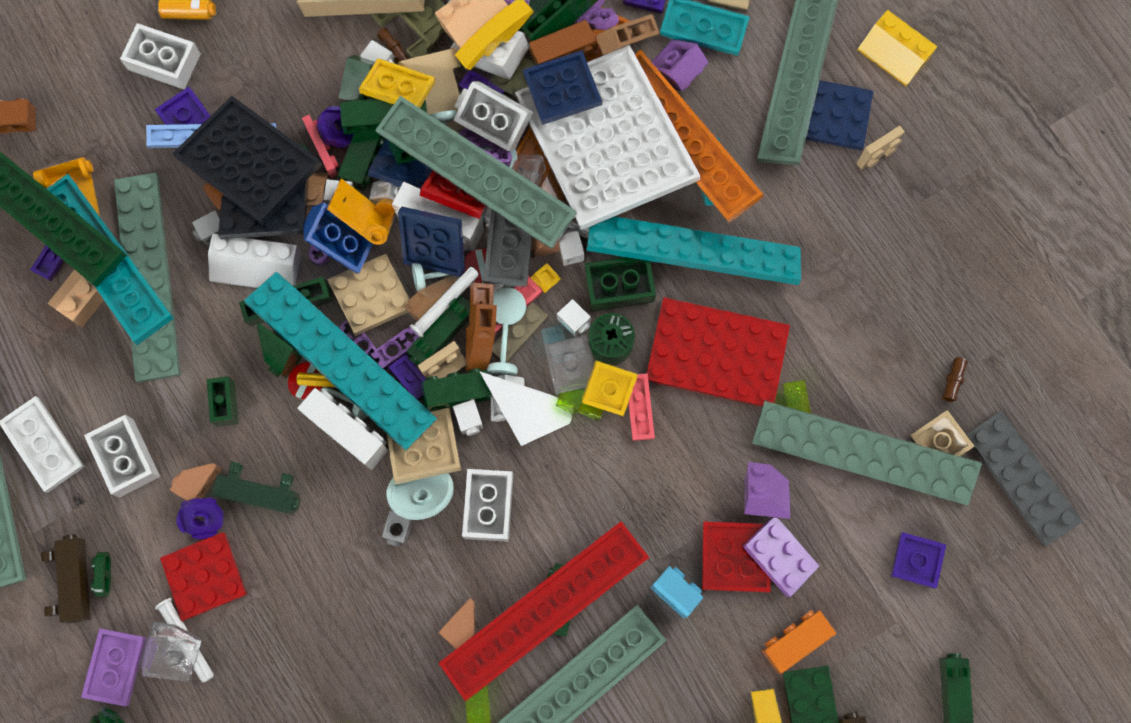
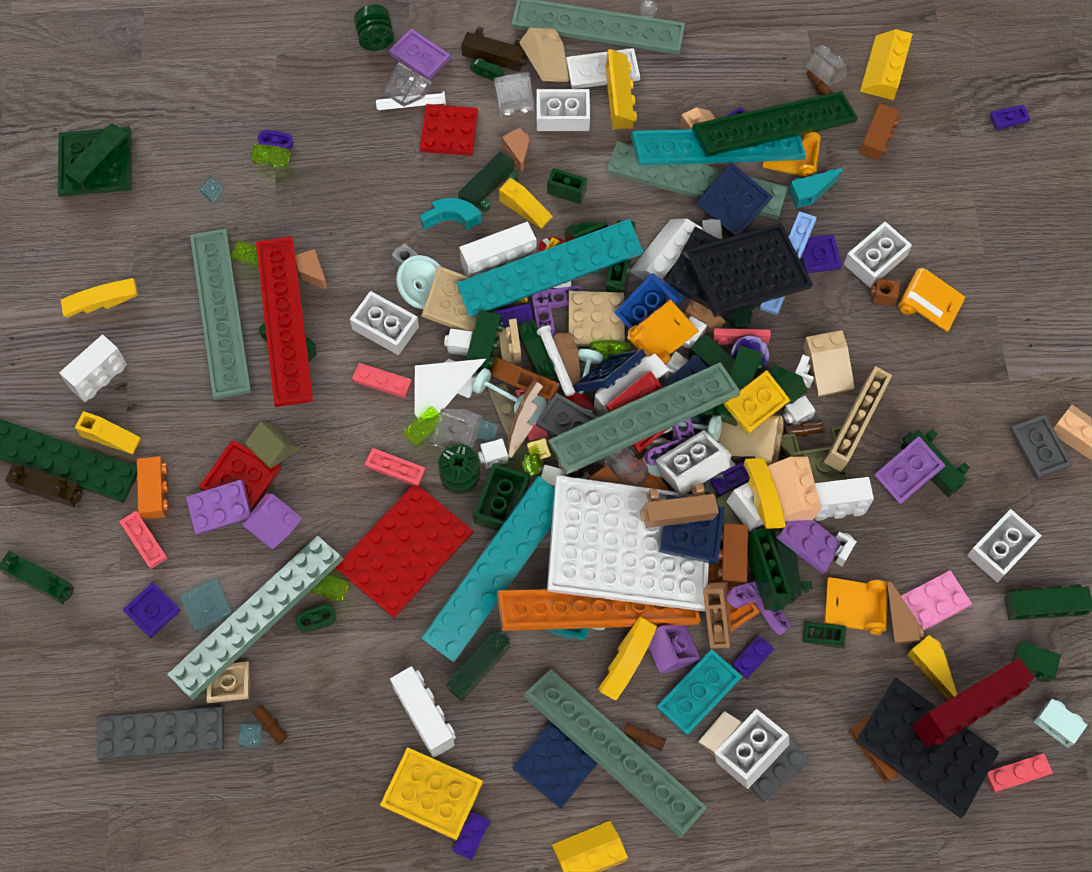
camera: 115 degrees right, 10 degrees down
(52, 513) = (546, 54): none -> tan slope
(69, 404) = (619, 90): none -> yellow slope
(107, 153) = (809, 189): none -> teal slope
(127, 521) = (513, 93): none -> clear slope
(160, 219) = (734, 200): none -> dark blue plate
(201, 27) = (889, 287): none -> dark orange brick
(201, 507) = (490, 139): dark purple plate -> none
(265, 438) = (524, 203): none -> yellow slope
(308, 54) = (829, 363): none -> tan slope
(308, 508) = (451, 209): none -> teal arch
(330, 76) = (803, 369): none -> white bracket
(403, 272) = (609, 346): none -> clear neon green slope
(522, 301) = (520, 426): none -> slope
(551, 476) = (382, 380): none -> coral plate
(555, 98) = (679, 510): none -> medium nougat brick
(571, 266) = (533, 462): none -> clear neon green slope
(609, 388) = (420, 446): yellow plate -> none
(677, 592) = (239, 417): medium azure slope -> none
(685, 543) = (271, 444): none -> olive slope
(708, 91) = (628, 659): none -> yellow slope
(770, 52) = (644, 736): none -> reddish brown pin
(791, 222) = (478, 665): none -> clear green brick
(834, 394) = (315, 616): none -> dark green plate
(855, 615) = (143, 540): none -> coral plate
(866, 242) = (422, 711): none -> white brick
(880, 511) = (206, 605): none -> clear light blue tile
(884, 146) = (499, 782): tan plate -> none
(927, 203) = (431, 793): none -> yellow plate
(940, 153) = (471, 836): none -> dark purple plate
(974, 393) = (250, 735): none -> clear light blue plate

